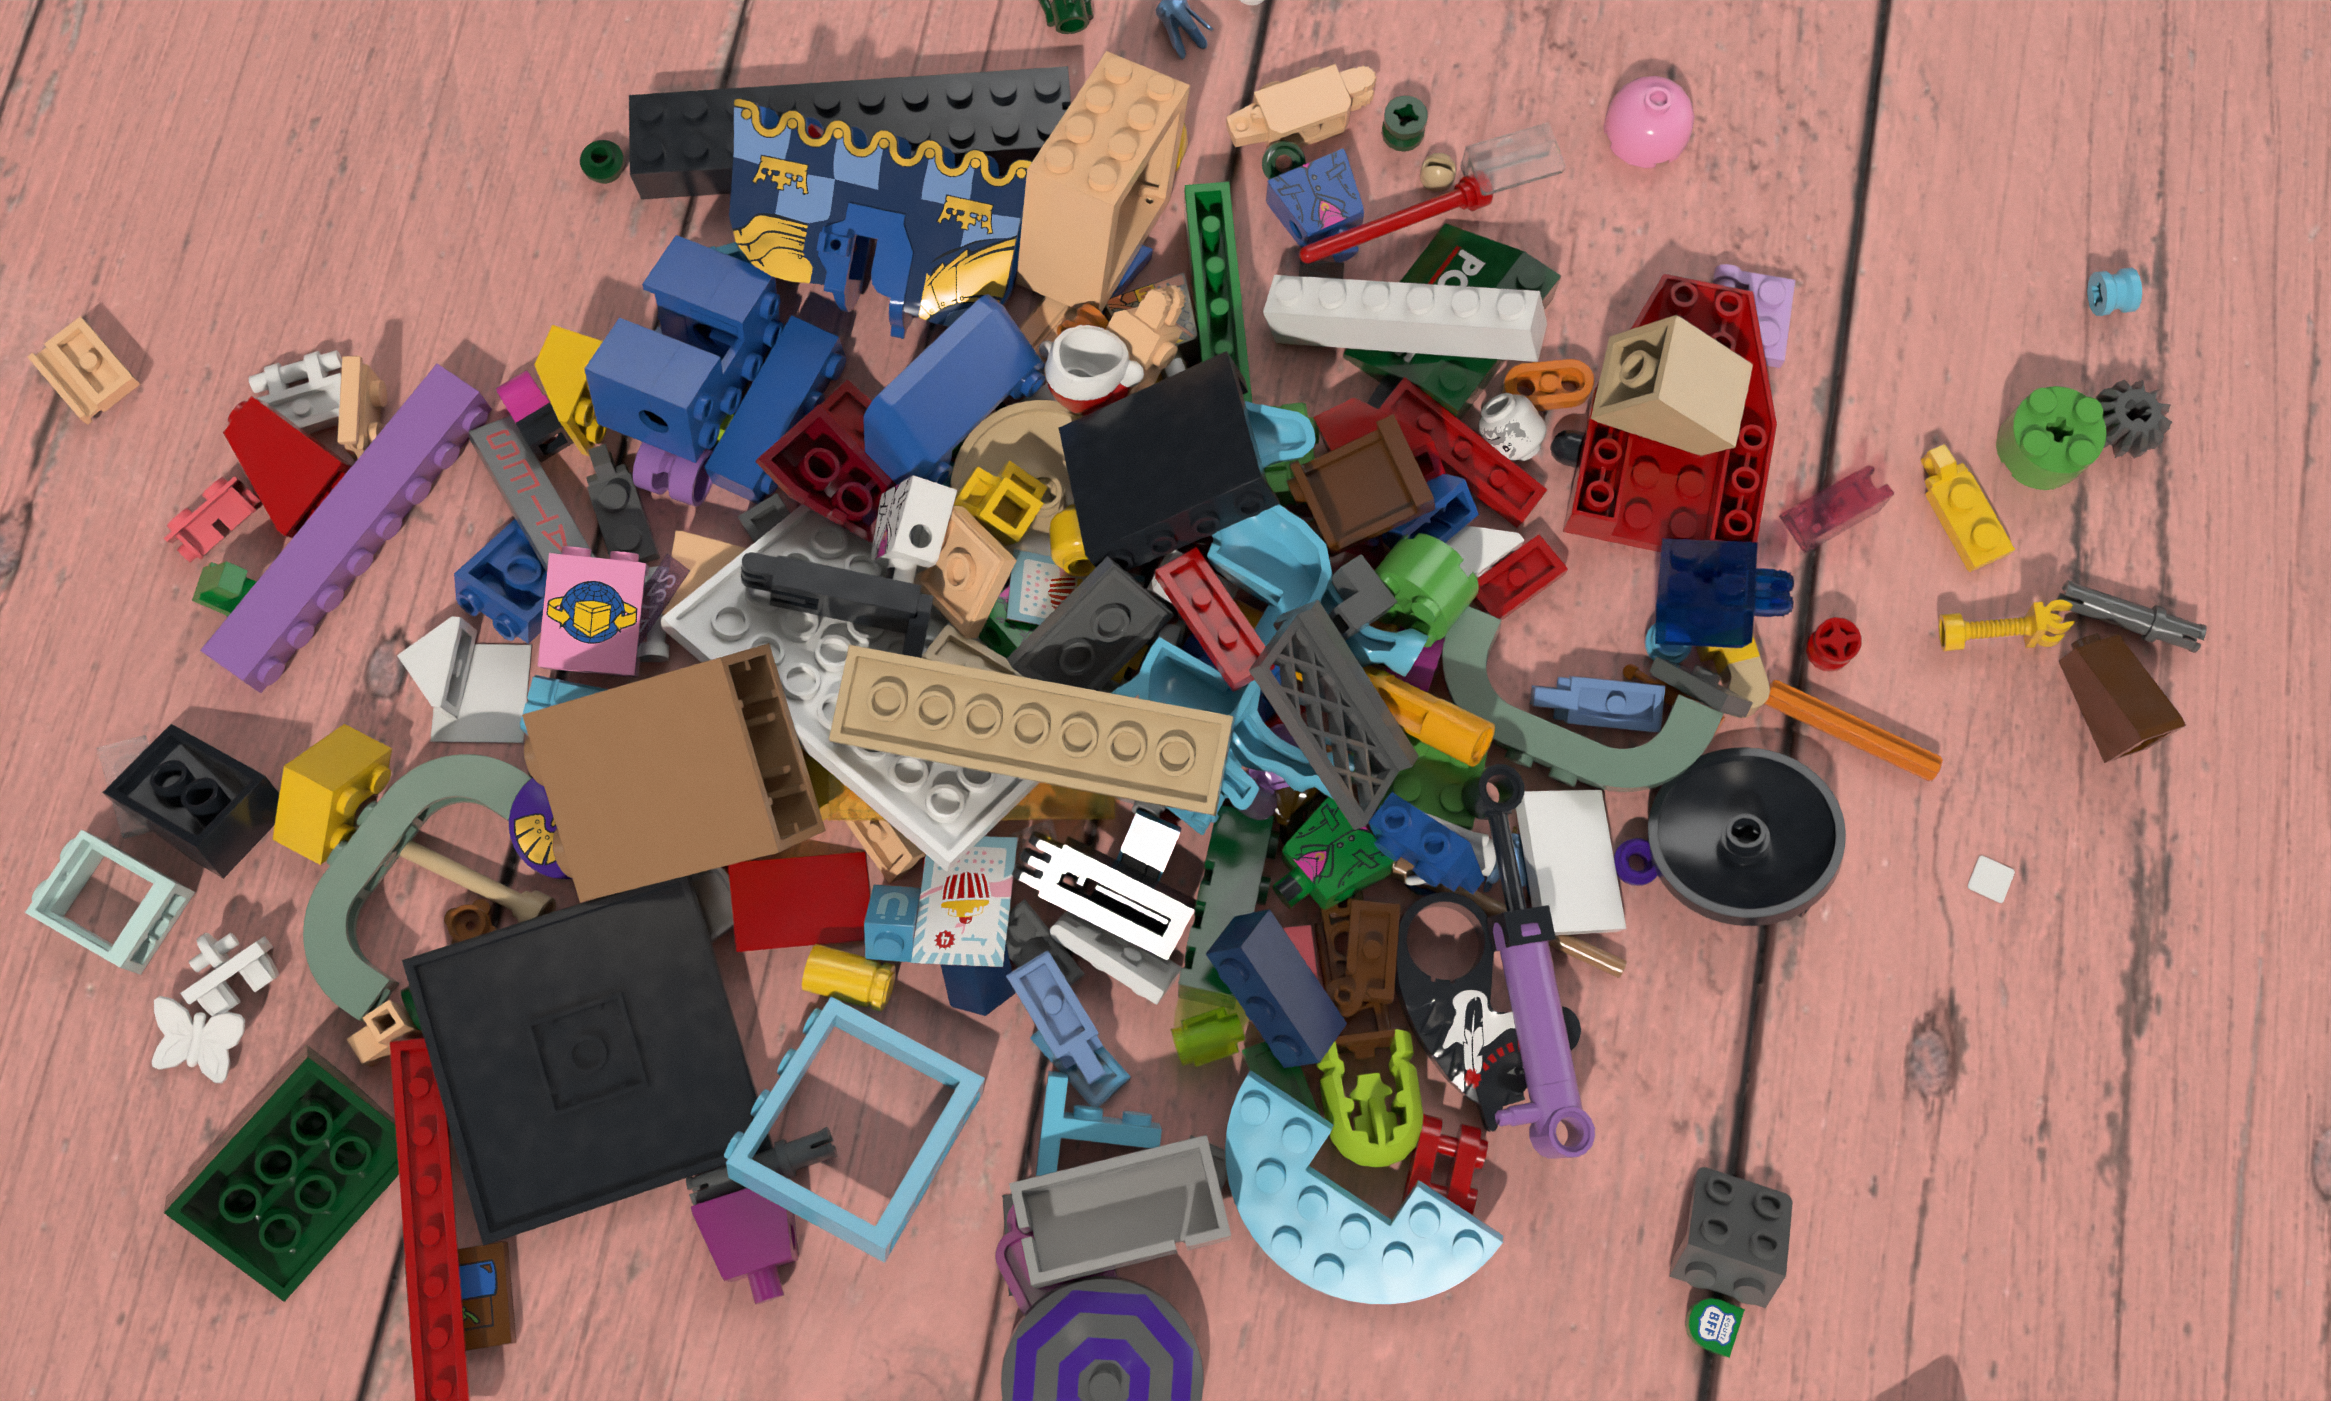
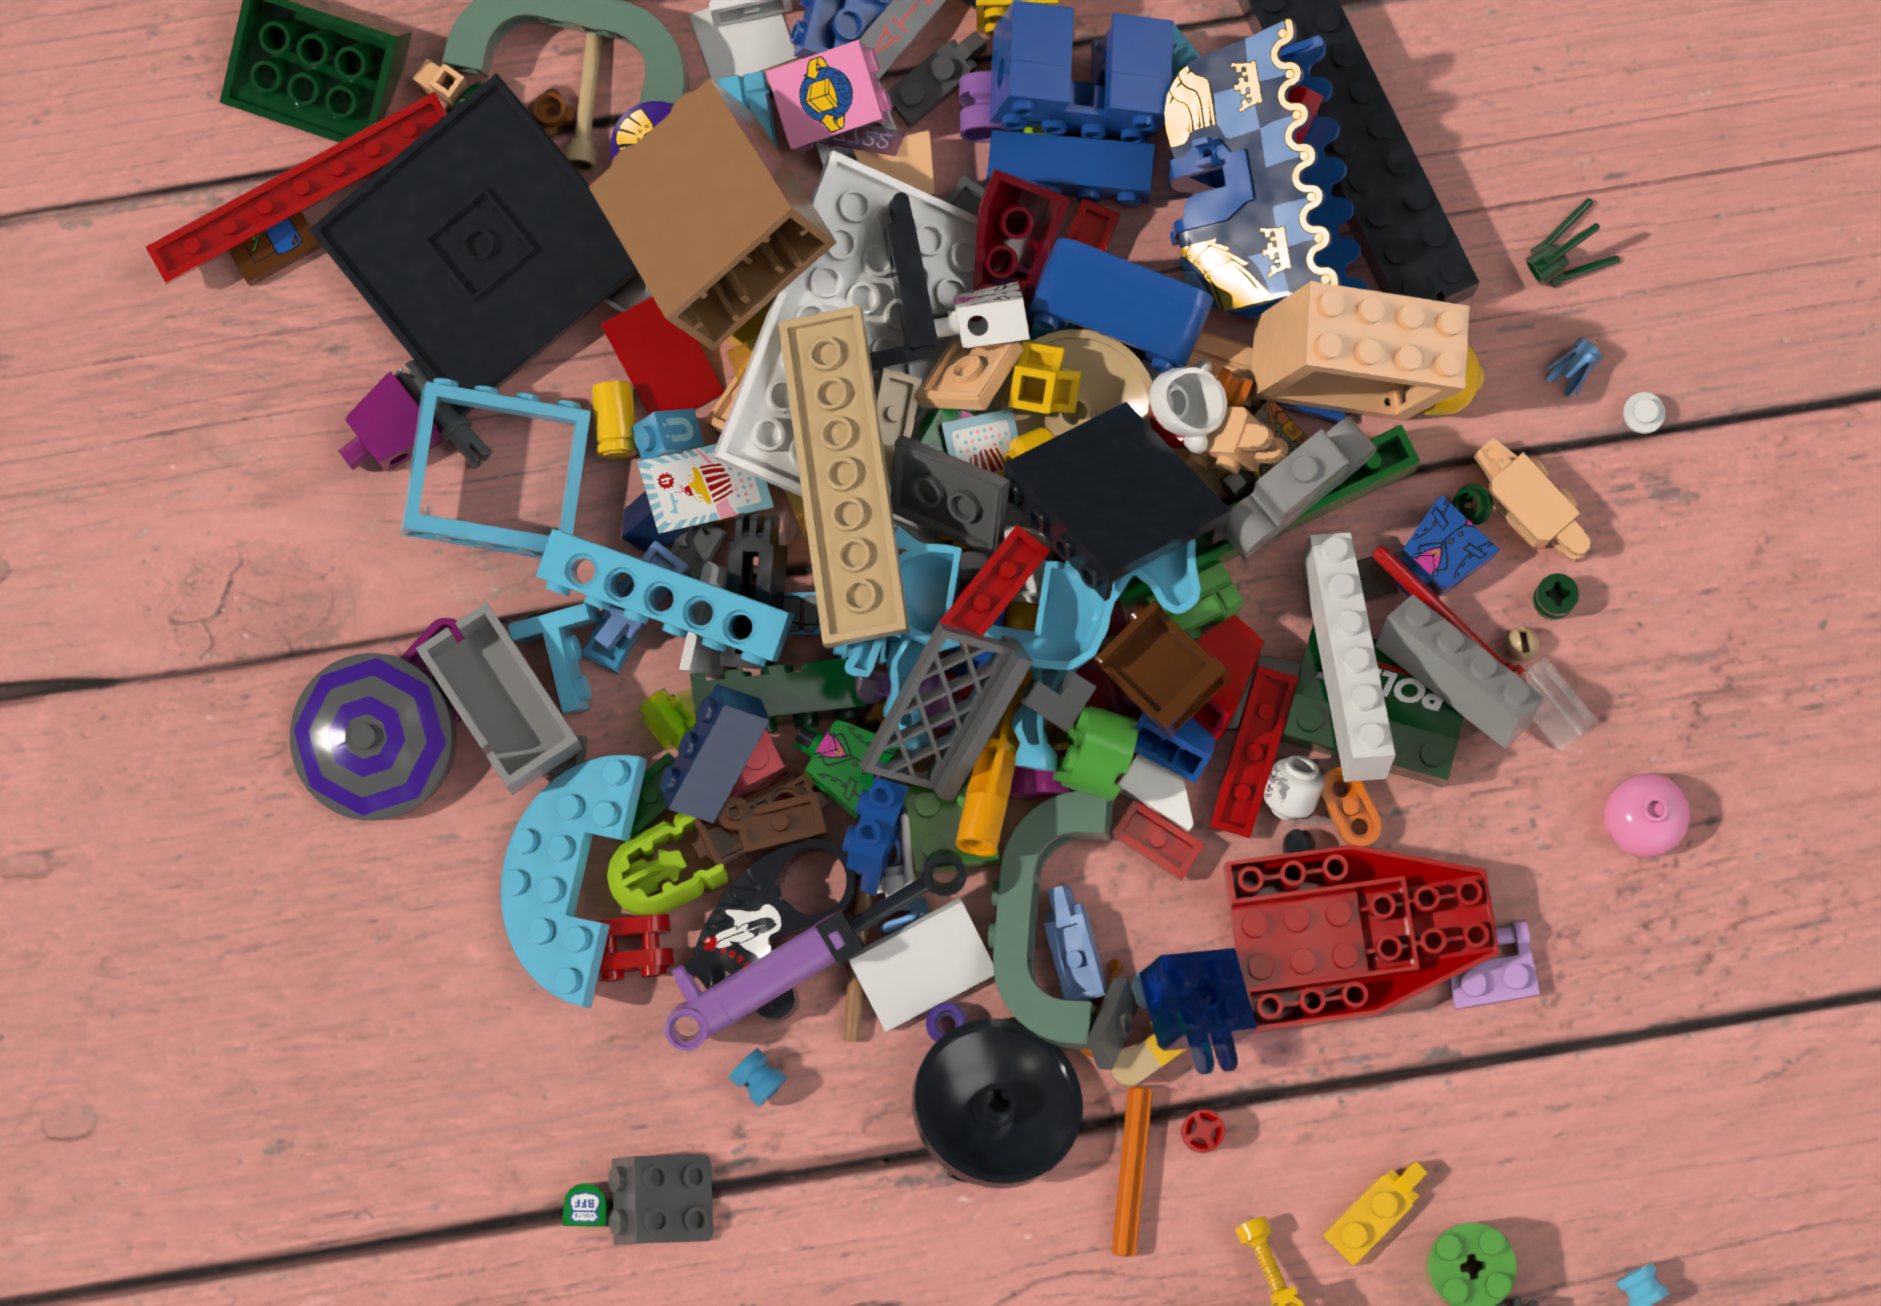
camera: 75 degrees right, 5 degrees up
(1151, 878) = (567, 551): none -> medium azure brick
(1218, 287) = (1297, 485): none -> light grey brick
(1456, 223) = (1459, 671): none -> light grey brick
(1637, 1079) = (760, 1079): none -> dark azure wheel
(1673, 387) = (1368, 908): tan slope -> none
(1835, 509) = (1331, 1095): clear pink hinge -> none

